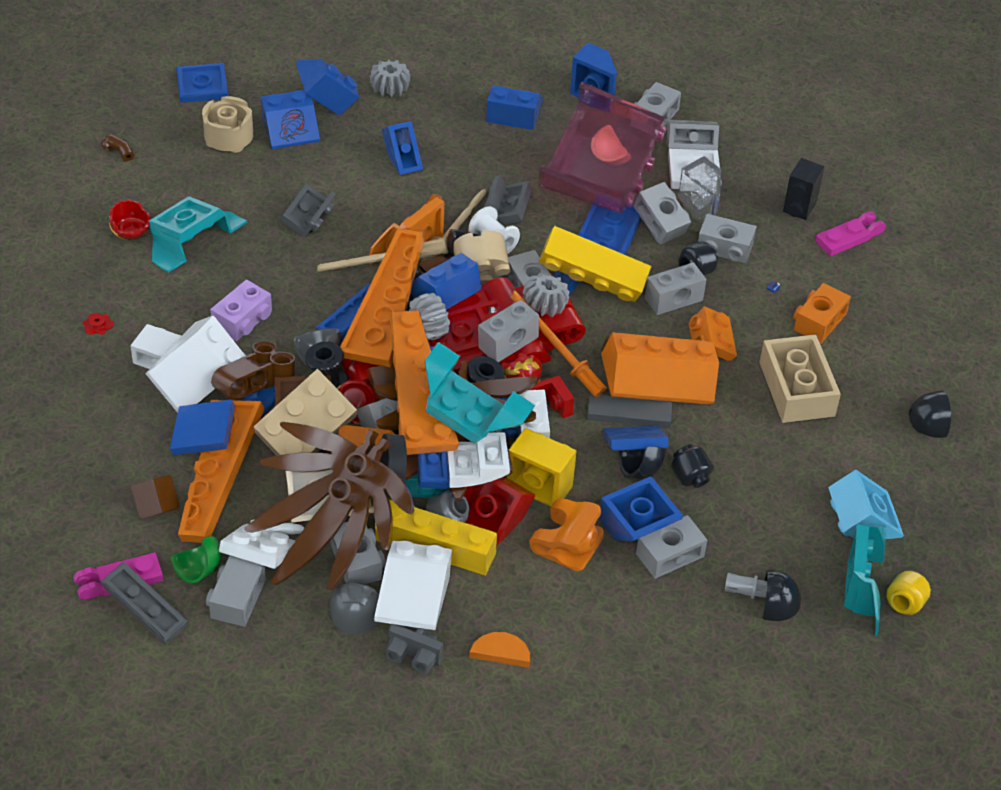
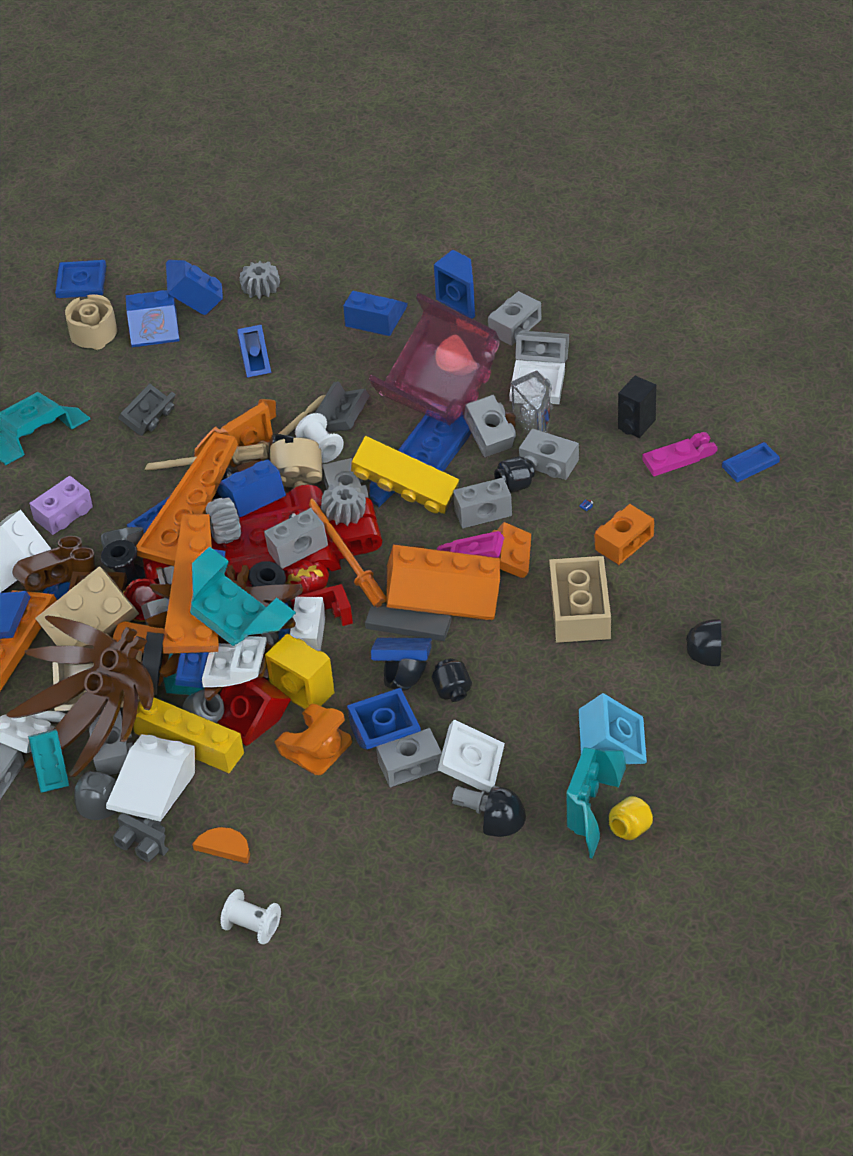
camera: 15 degrees right, 0 degrees up
(298, 575) = (48, 760): none -> teal plate
(552, 722) = (250, 916): none -> white hose
(692, 329) = (482, 545): none -> dark pink hinge
(735, 541) = (471, 756): none -> white plate
(920, 238) = (750, 462): none -> blue tile

